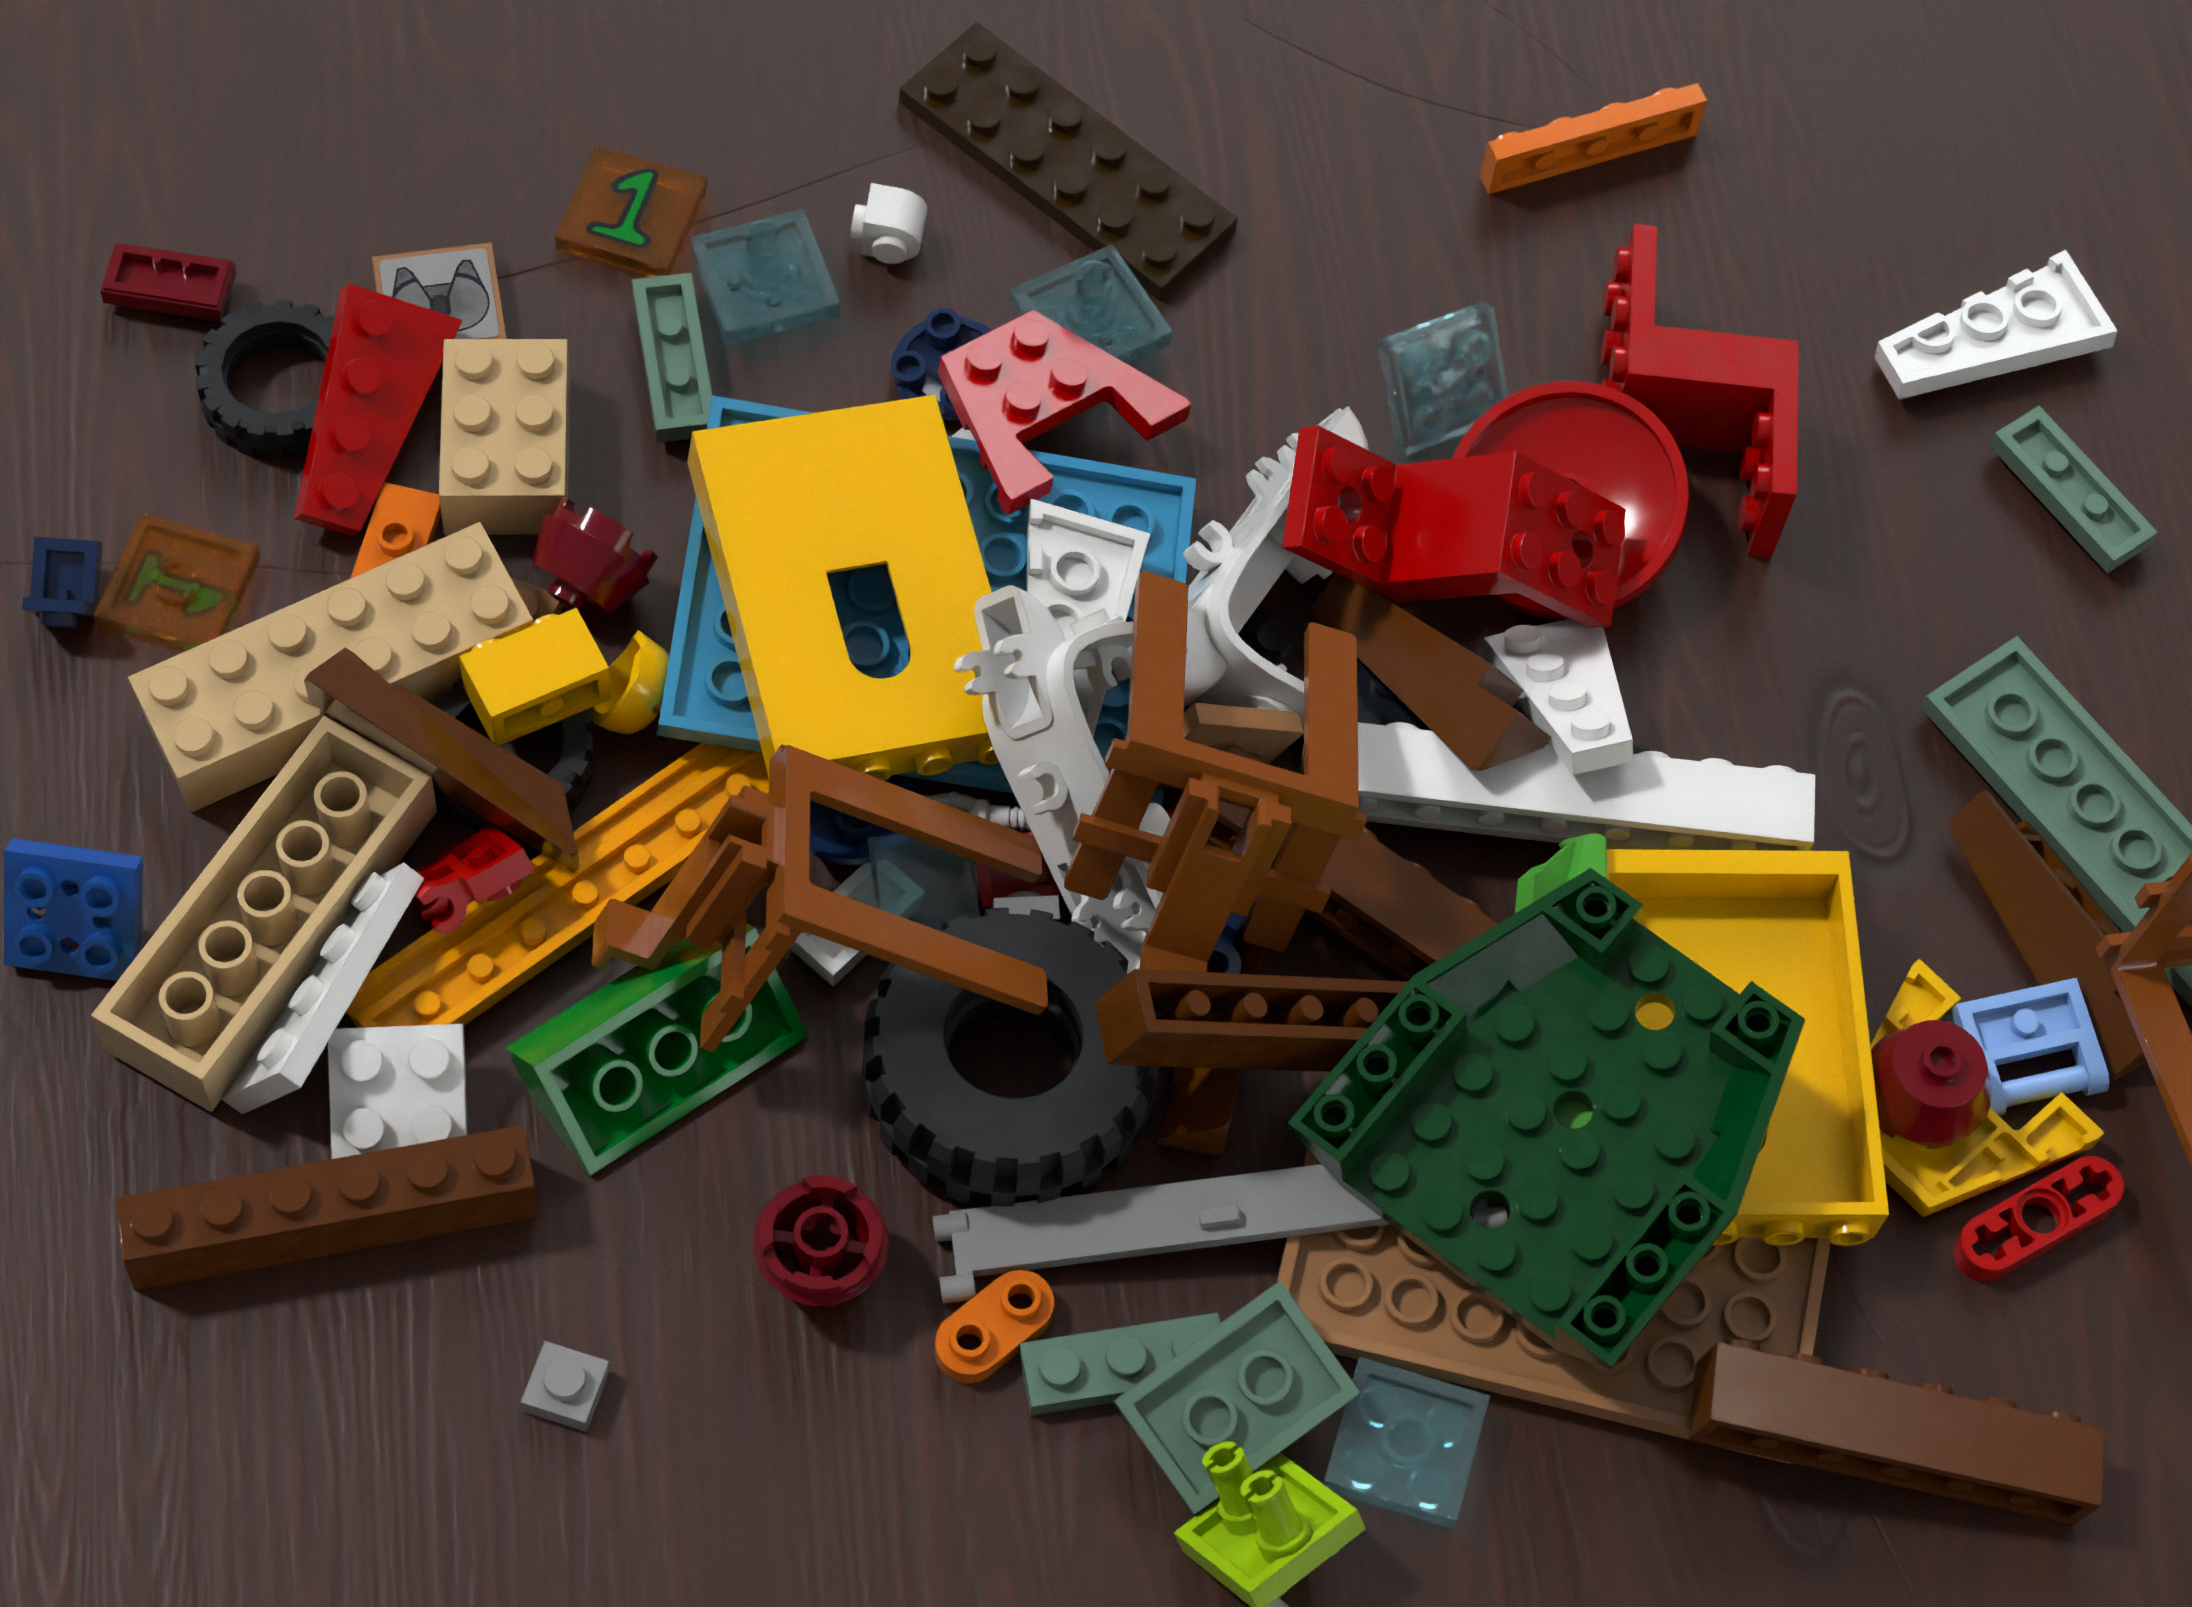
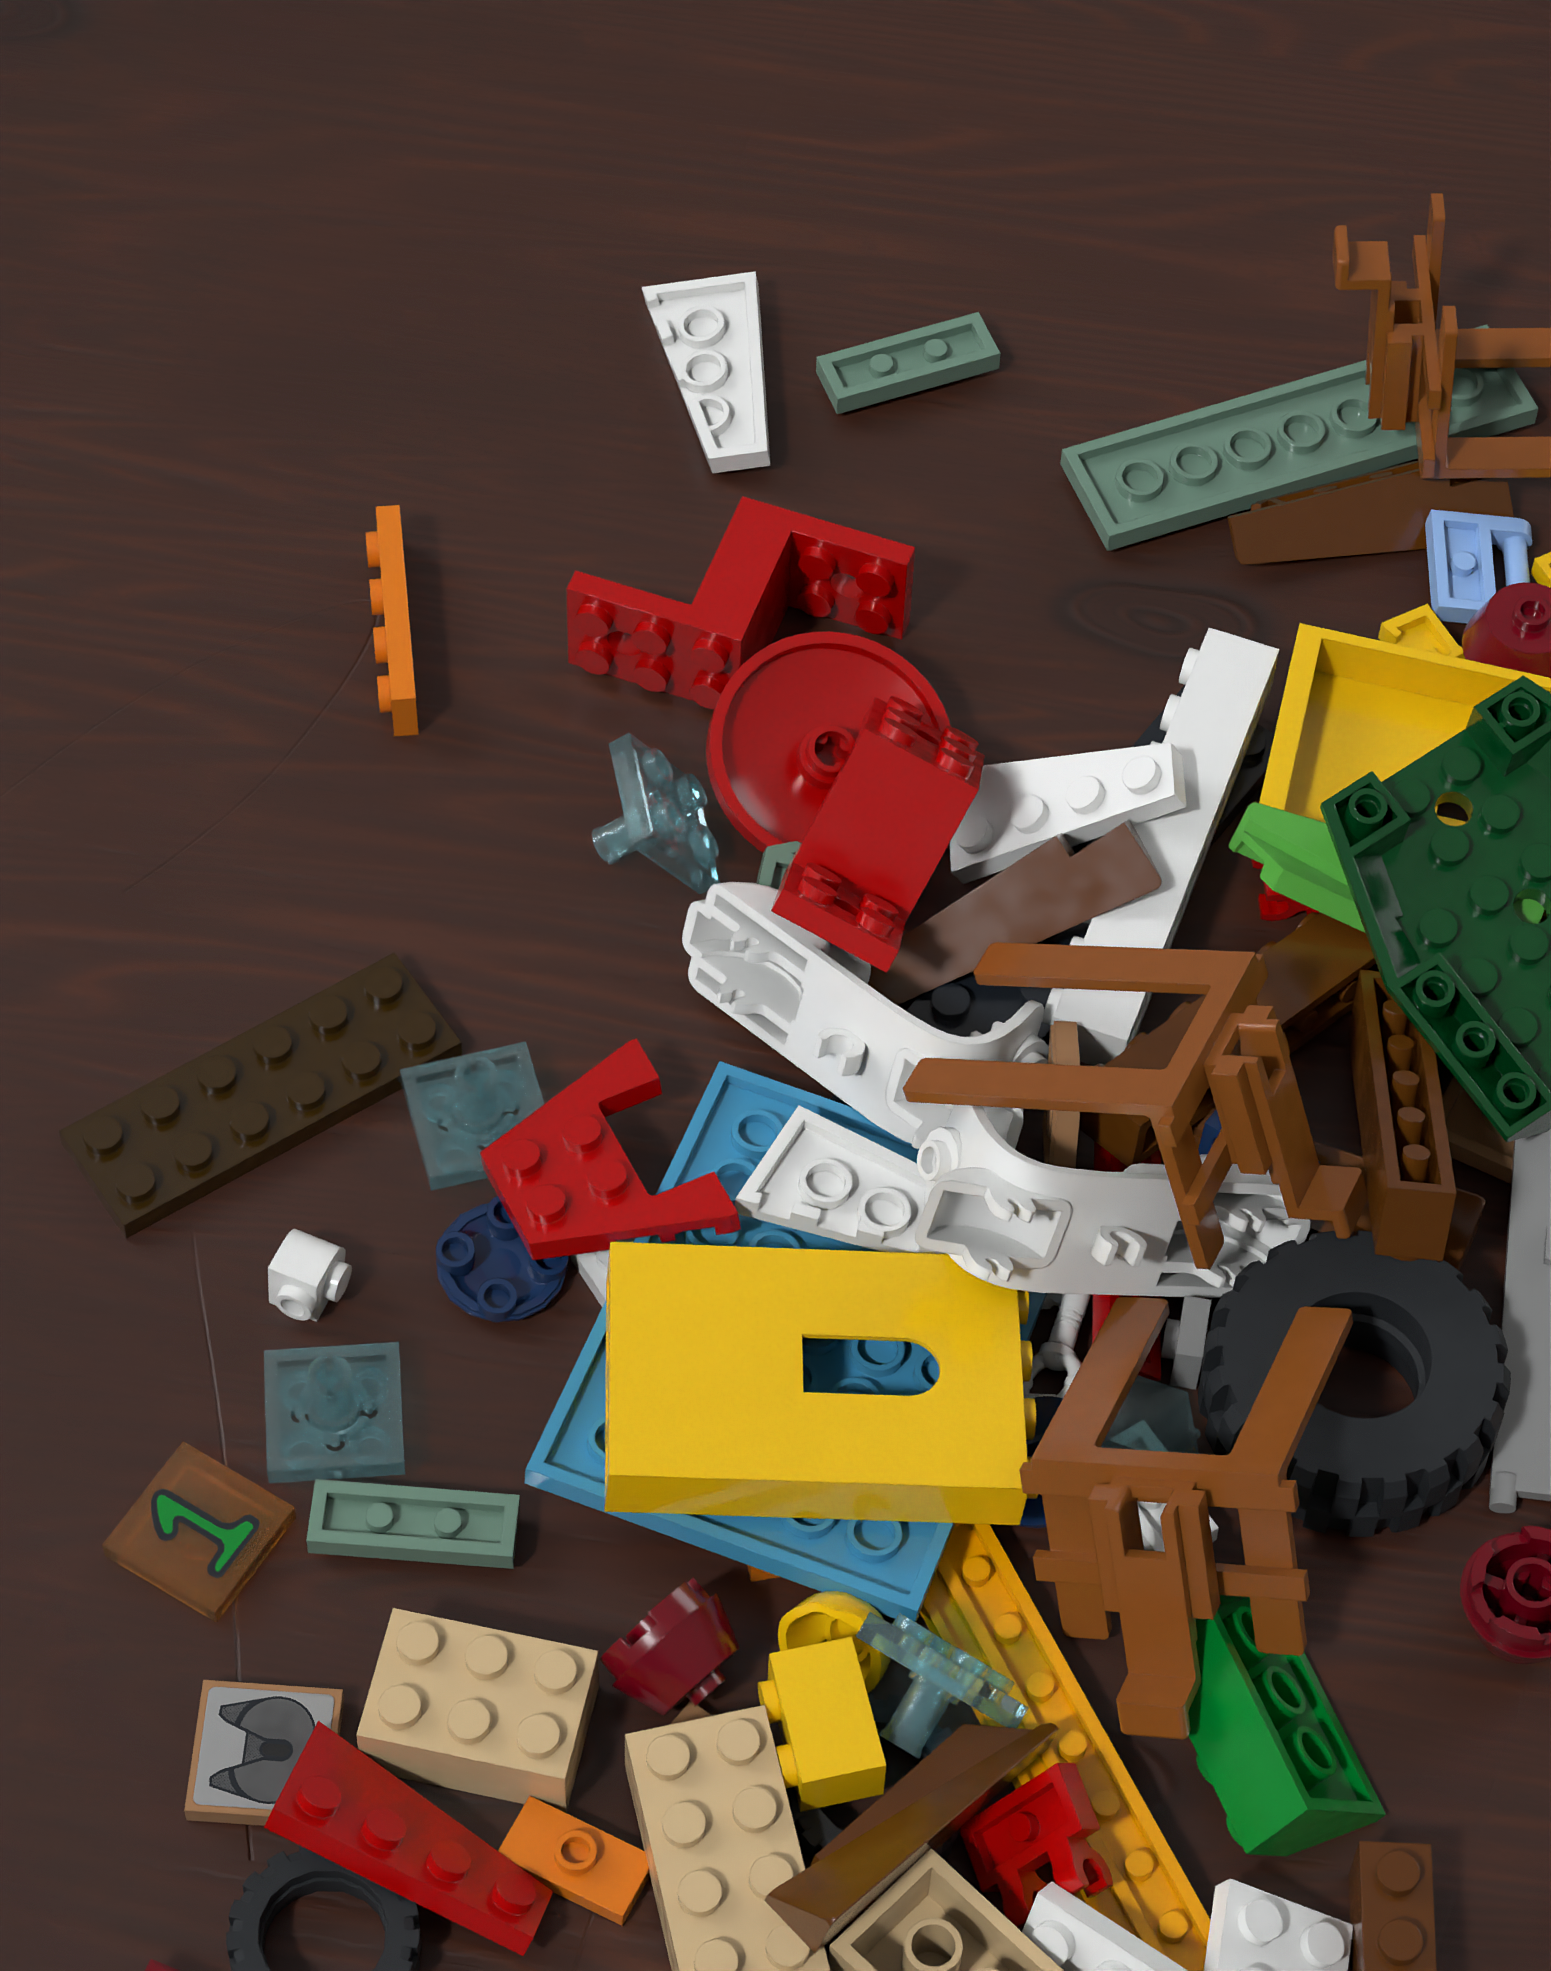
camera: 70 degrees left, 5 degrees down
(595, 750) = (939, 1677): none -> clear light blue plate

